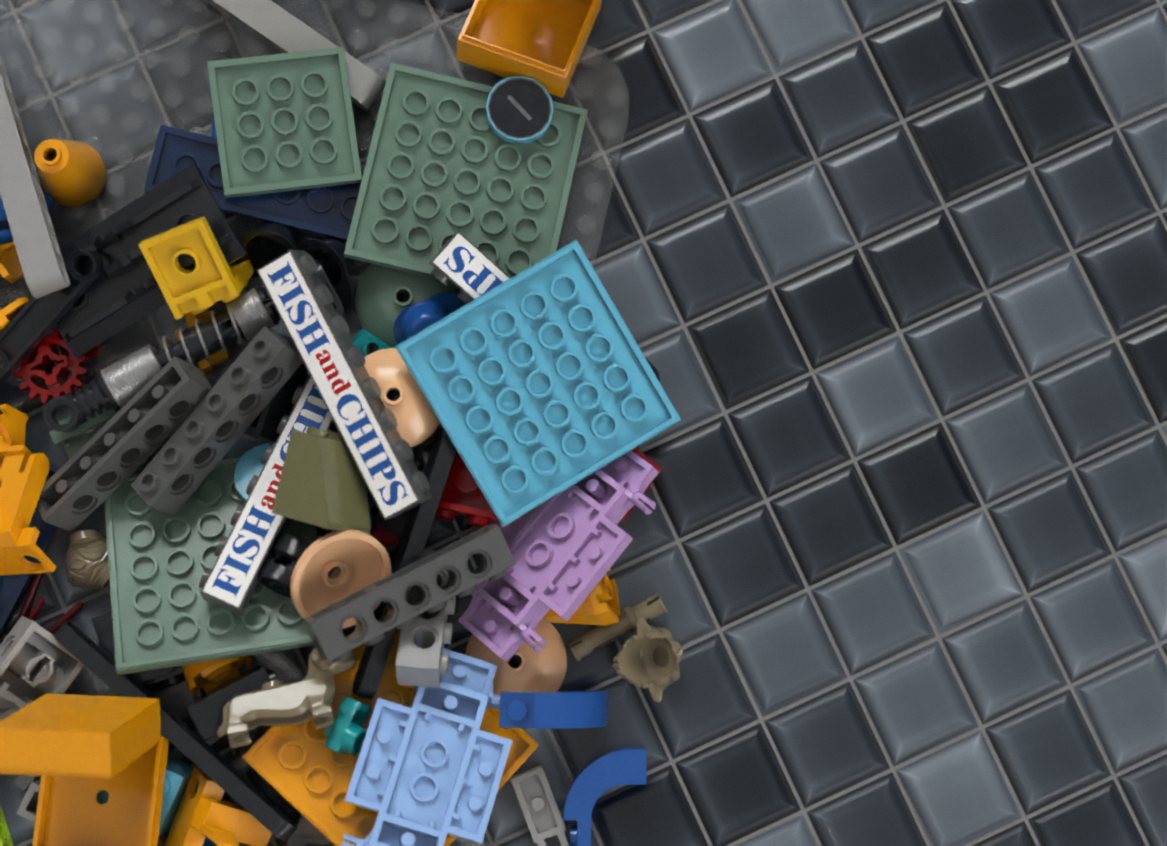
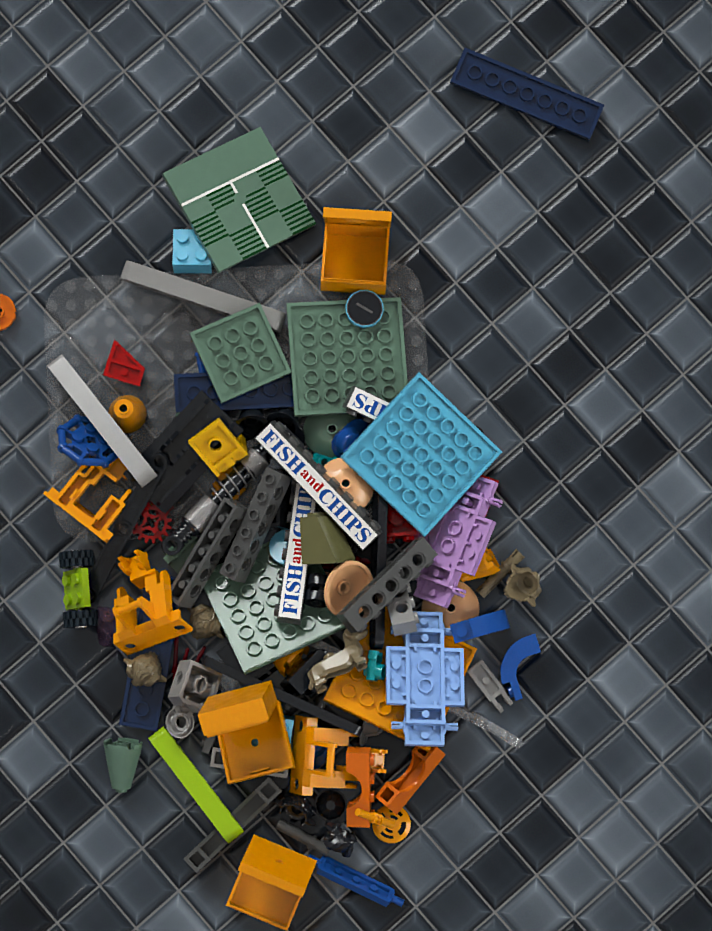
camera: 20 degrees left, 0 degrees up
(89, 92) = (123, 366): none -> red wing

